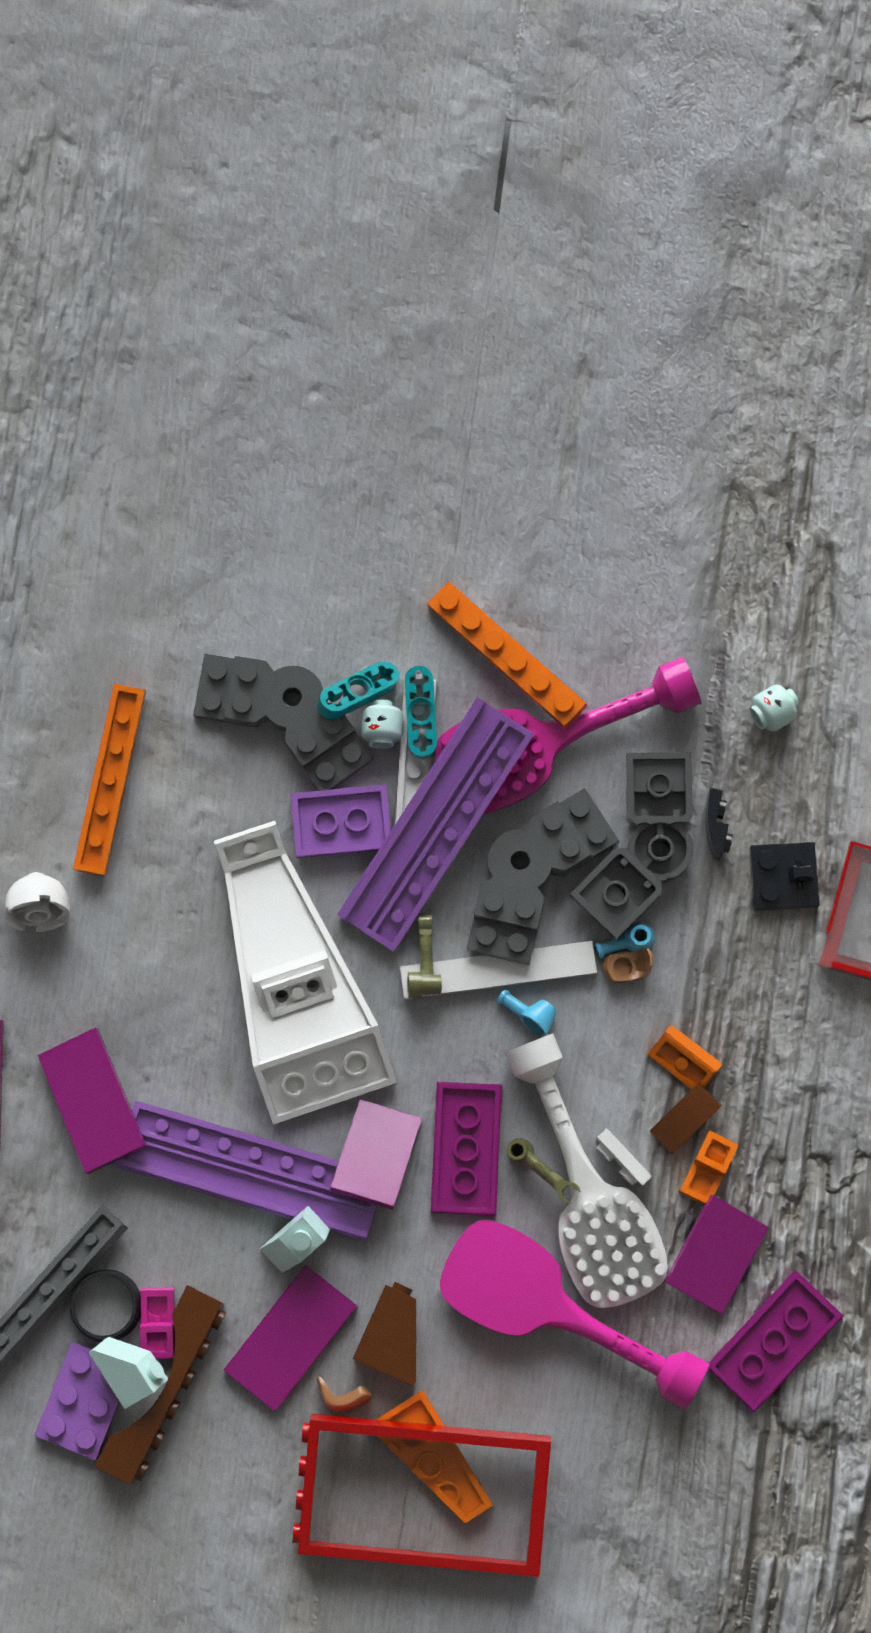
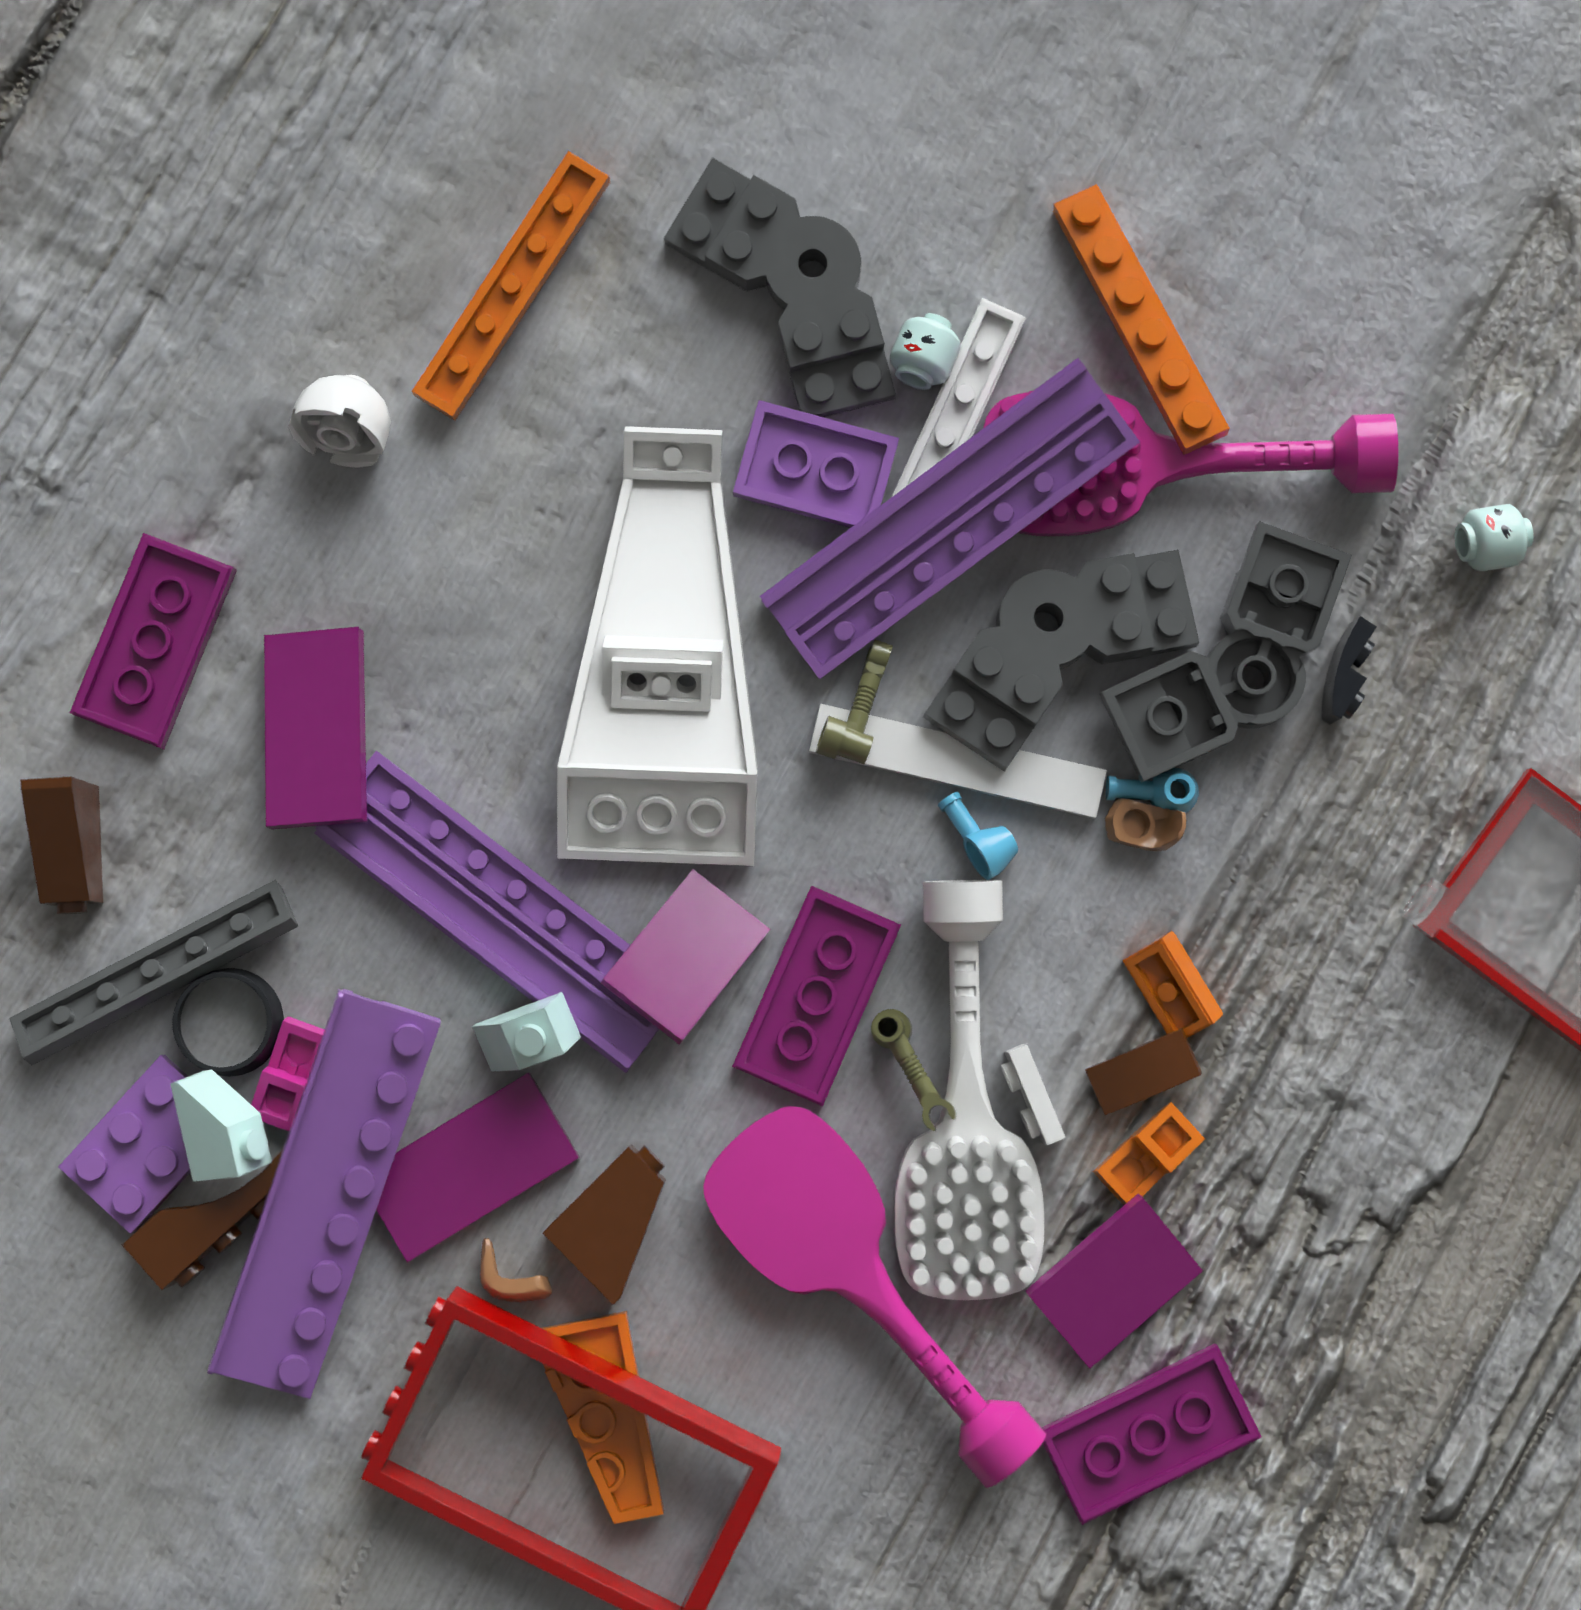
camera: 15 degrees right, 5 degrees up
(208, 1387) = (324, 1194): none -> medium lavender plate
(363, 678) = (894, 302): teal beam -> none
(430, 735) = (1009, 326): teal beam -> none
(784, 876) = (1414, 782): black hinge -> none

